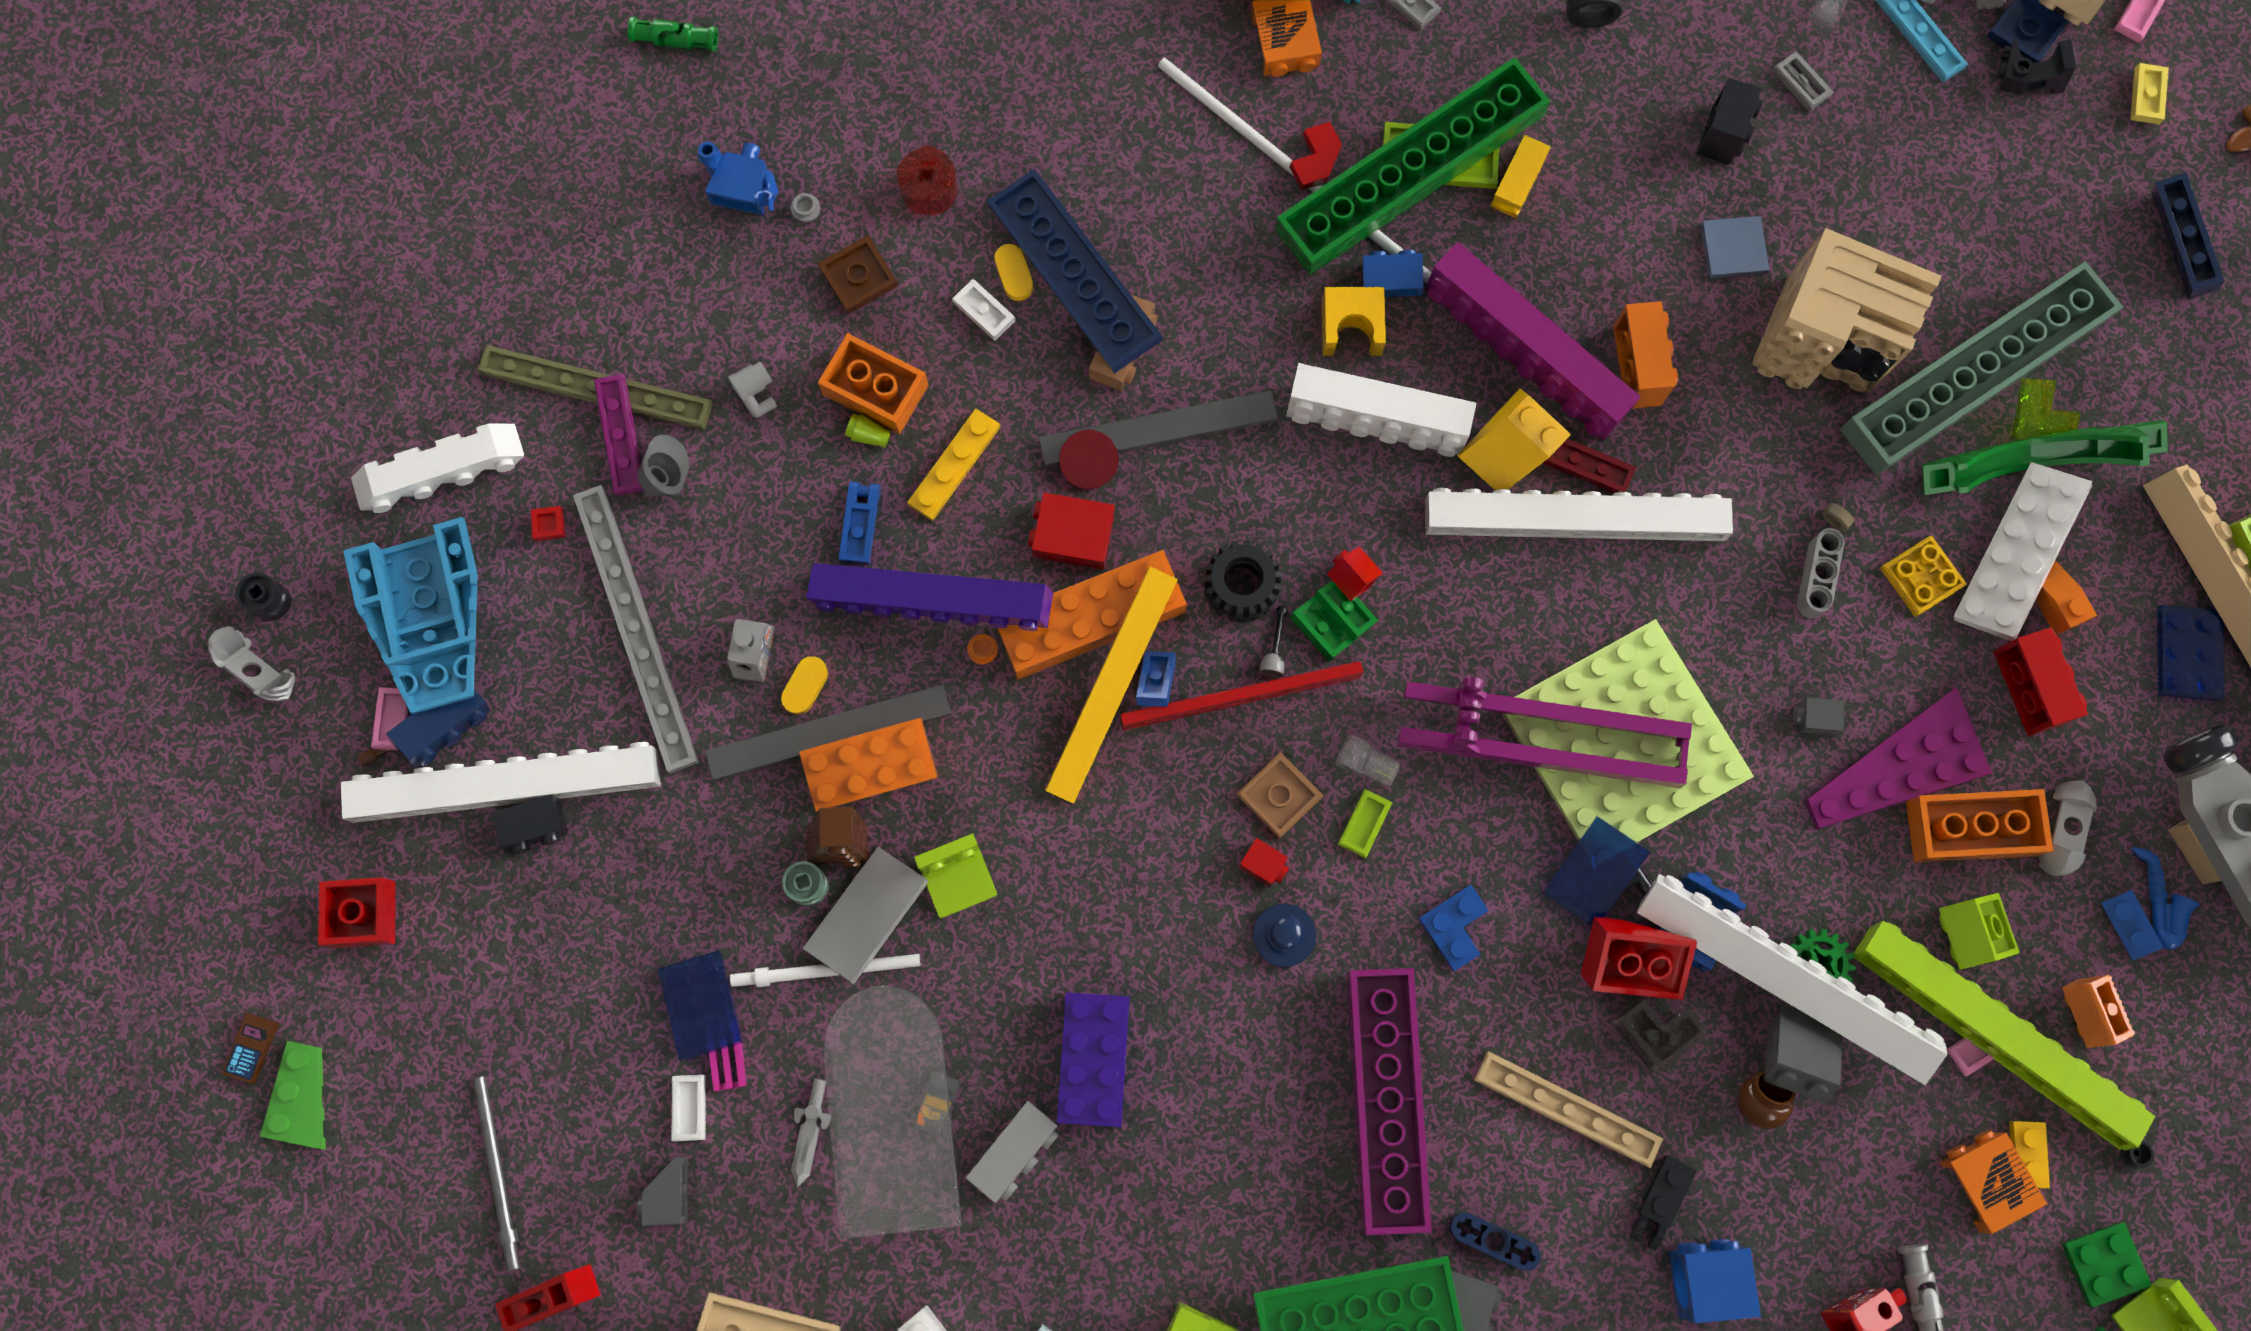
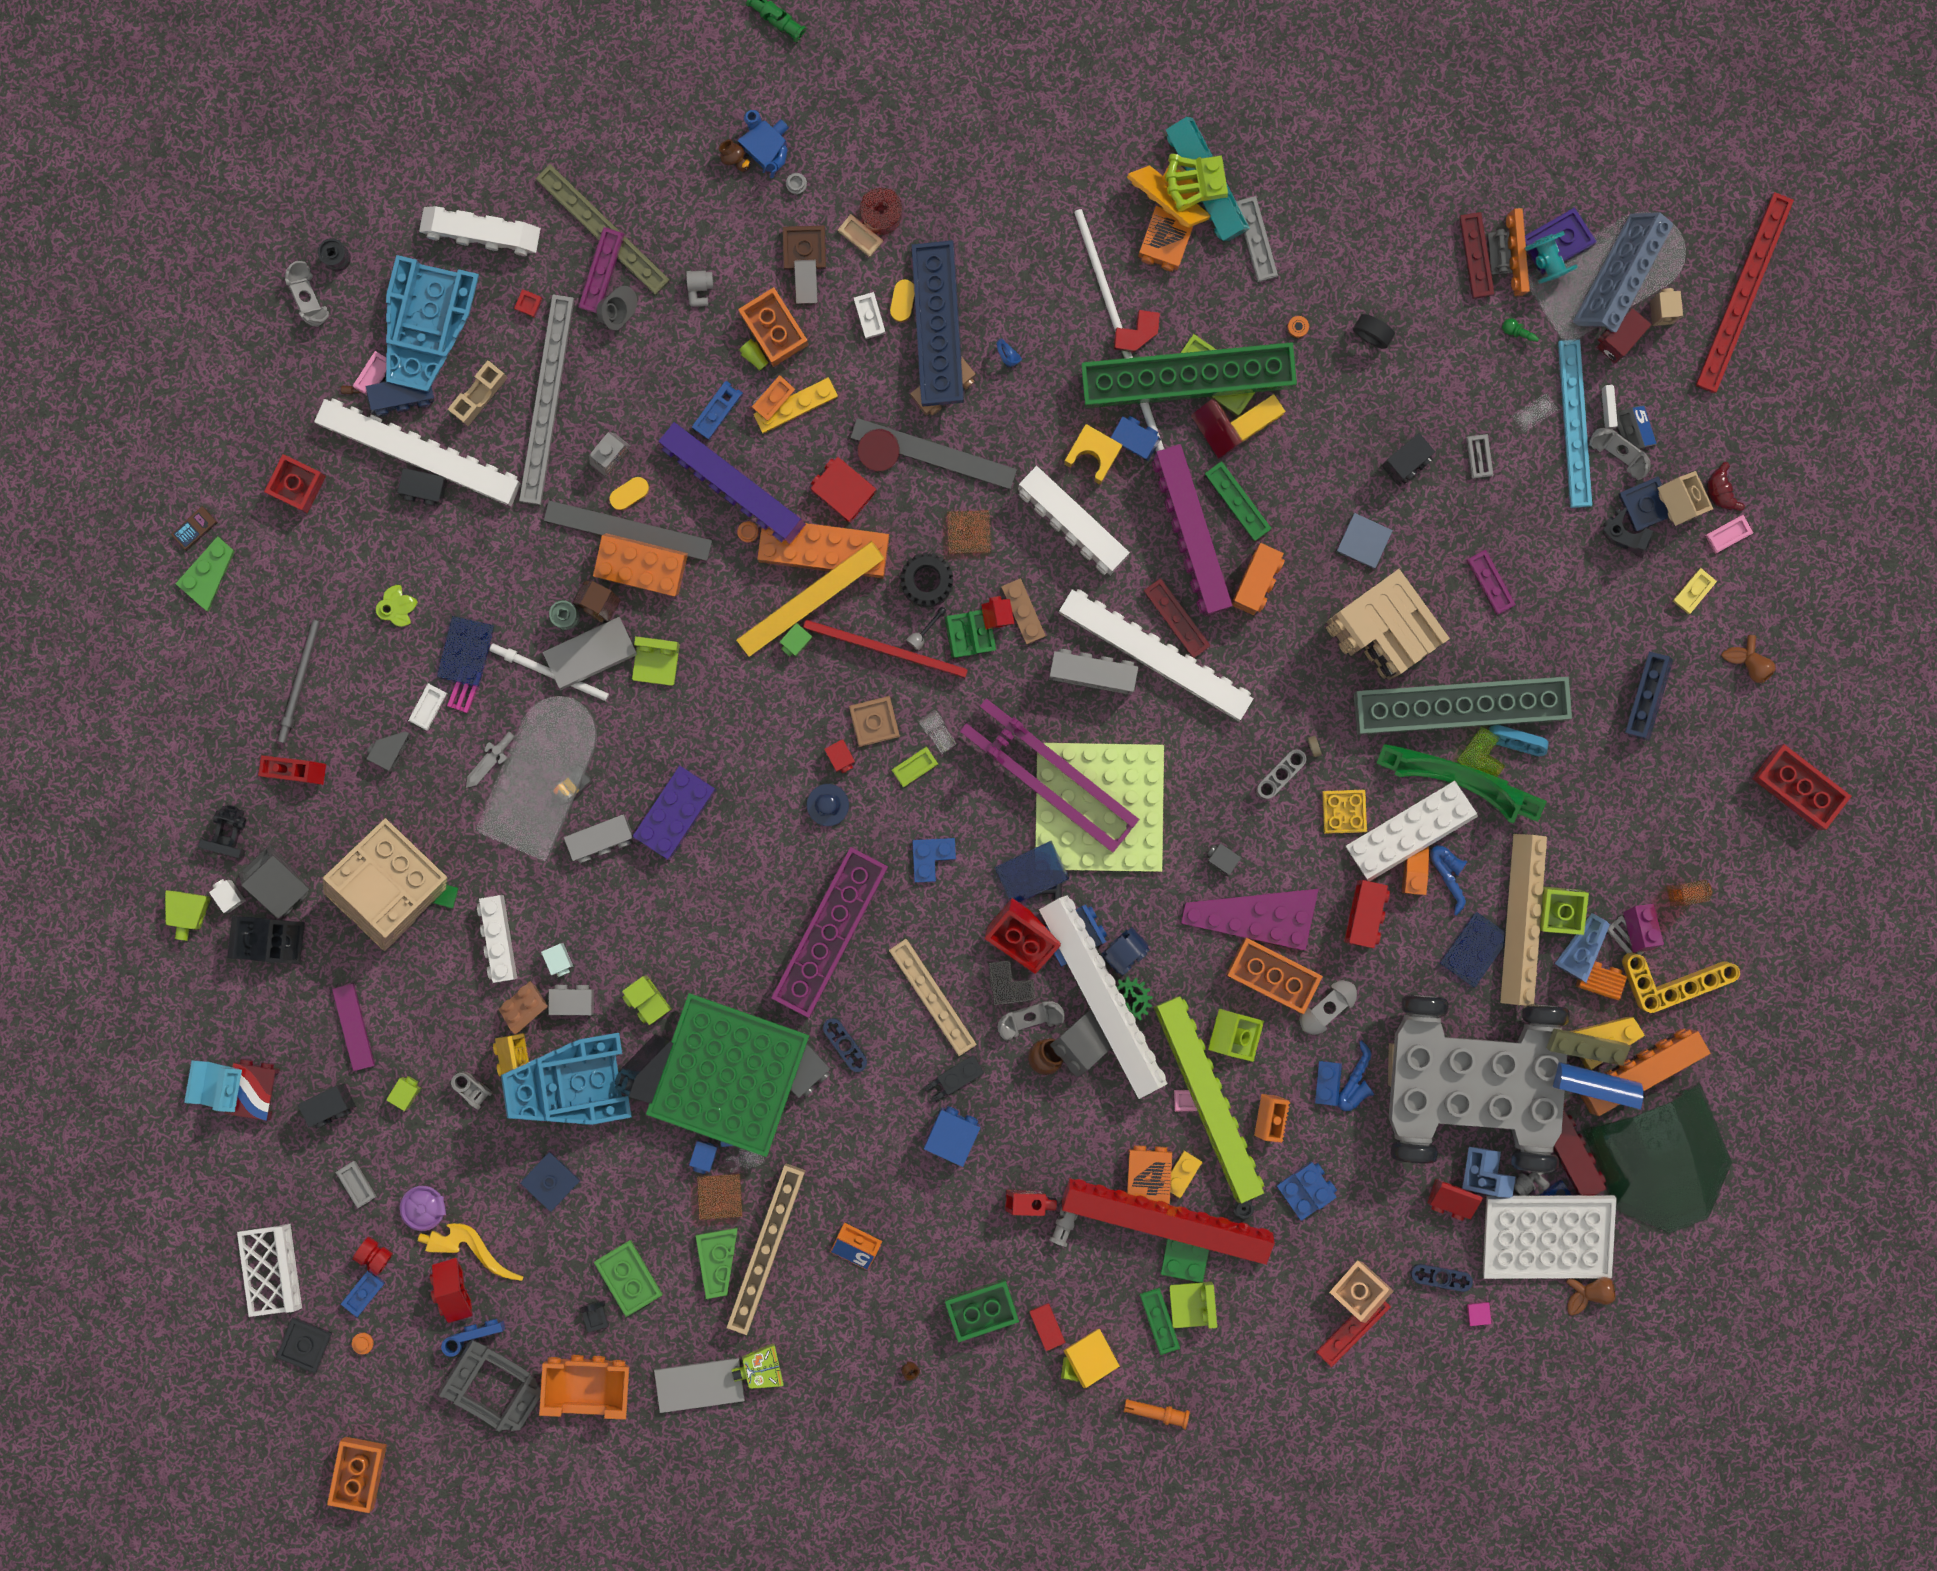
camera: 25 degrees right, 10 degrees up
(546, 647) = (486, 384): none -> tan arch
(580, 995) = (399, 605): none -> lime plate
(709, 211) = (733, 153): none -> reddish brown animal
(882, 311) = (806, 281): none -> light grey tile
(918, 226) = (860, 235): none -> tan tile
(920, 467) = (772, 397): none -> orange panel
(1121, 749) = (795, 641): none -> bright green brick
(1156, 678) = (840, 610): blue plate -> none
(1185, 265) = (1012, 356): none -> blue piece
(1257, 497) = (969, 532): none -> clear orange plate
(1388, 557) = (1023, 611): none -> medium nougat plate
(1481, 210) = (1216, 428): none -> dark red piece
(1499, 51) = (1298, 327): none -> orange tile
(1513, 442) = (1142, 588): yellow slope -> none
(1518, 576) = (1092, 672): none -> light grey brick
(1558, 283) = (1237, 501): none -> green plate
(1725, 1041) = (1014, 1021): none -> light grey piece
(1778, 902) = (1125, 950): none -> dark blue brick
(1912, 213) = (1491, 582): none -> magenta tile
(2061, 1229) = (1168, 1221): none -> red brick
(2086, 569) = (1445, 863): none -> blue piece
(2088, 369) = (1527, 742): none -> dark azure beam
(2199, 1079) = (1307, 1190): none -> blue plate

